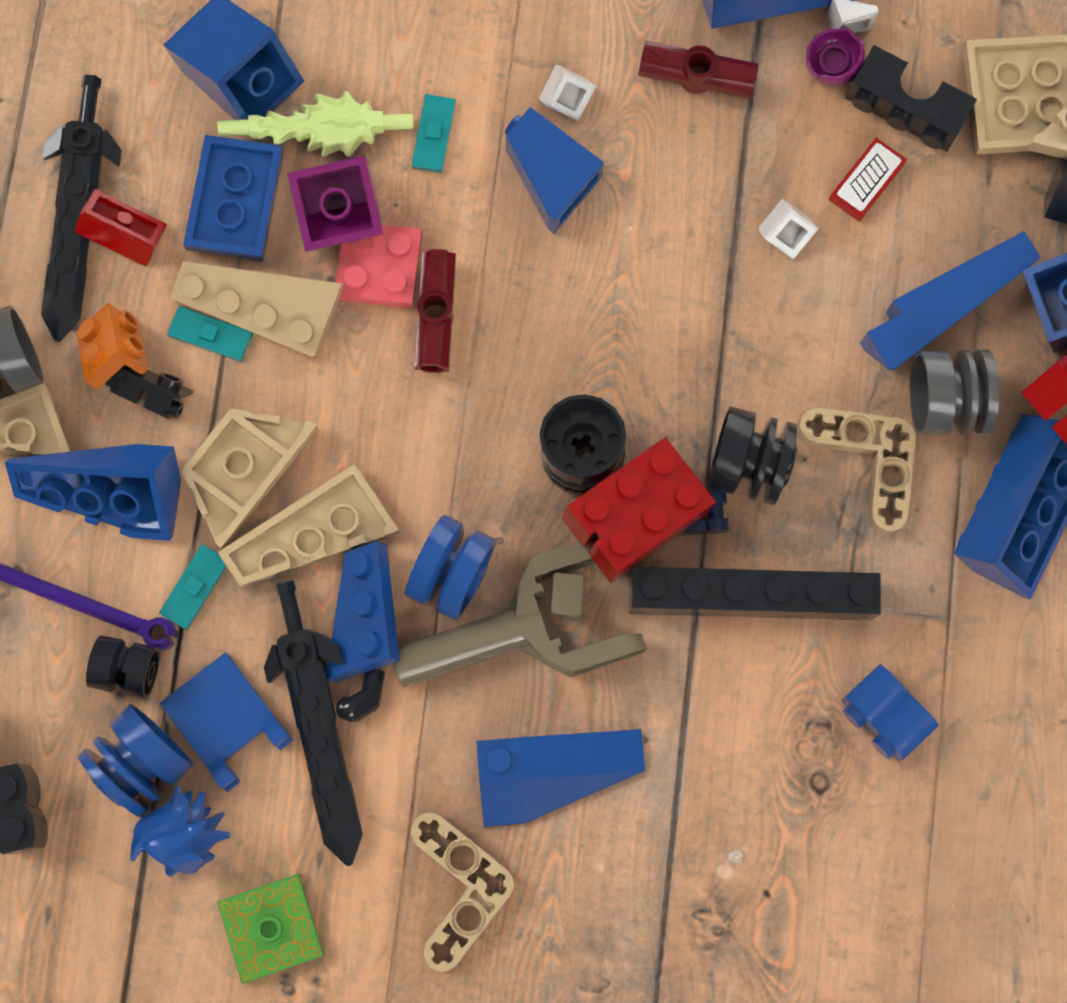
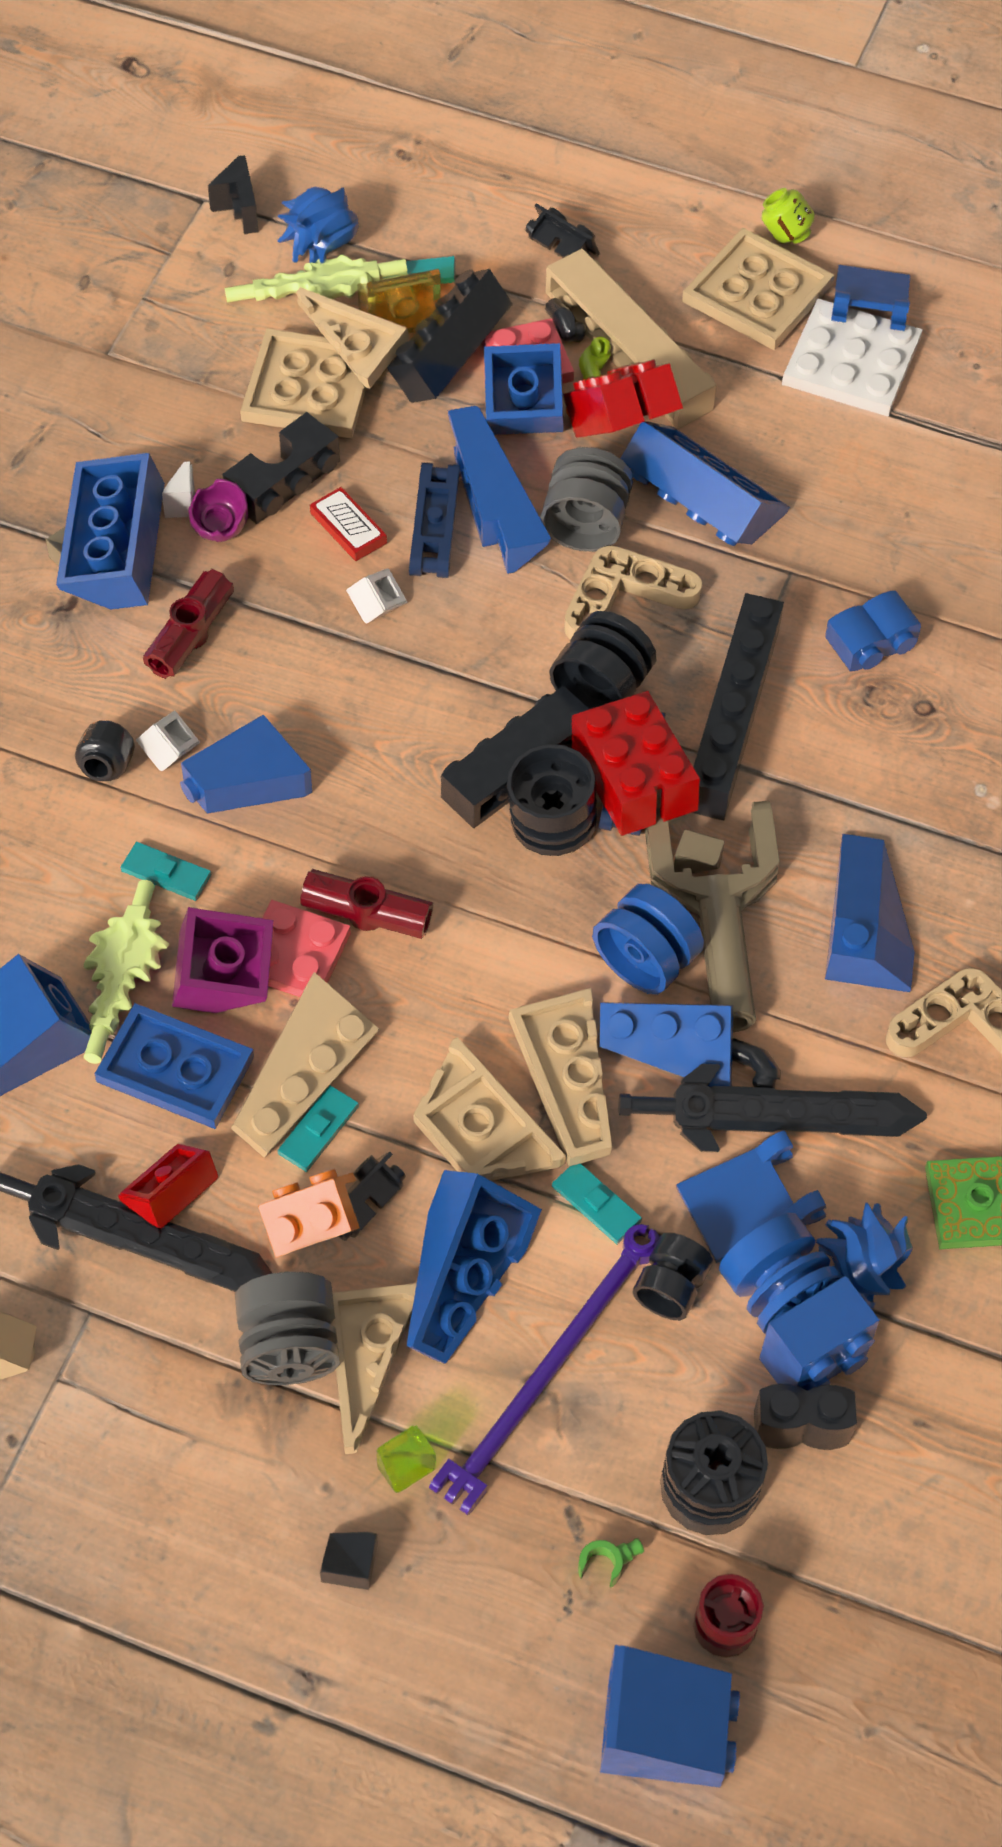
camera: 75 degrees left, 20 degrees down
(76, 808) = (820, 1337): none -> blue brick
(535, 41) = (104, 751): none -> black head
(646, 408) = (479, 781): none -> black brick
(896, 256) = (434, 519): none -> dark blue plate

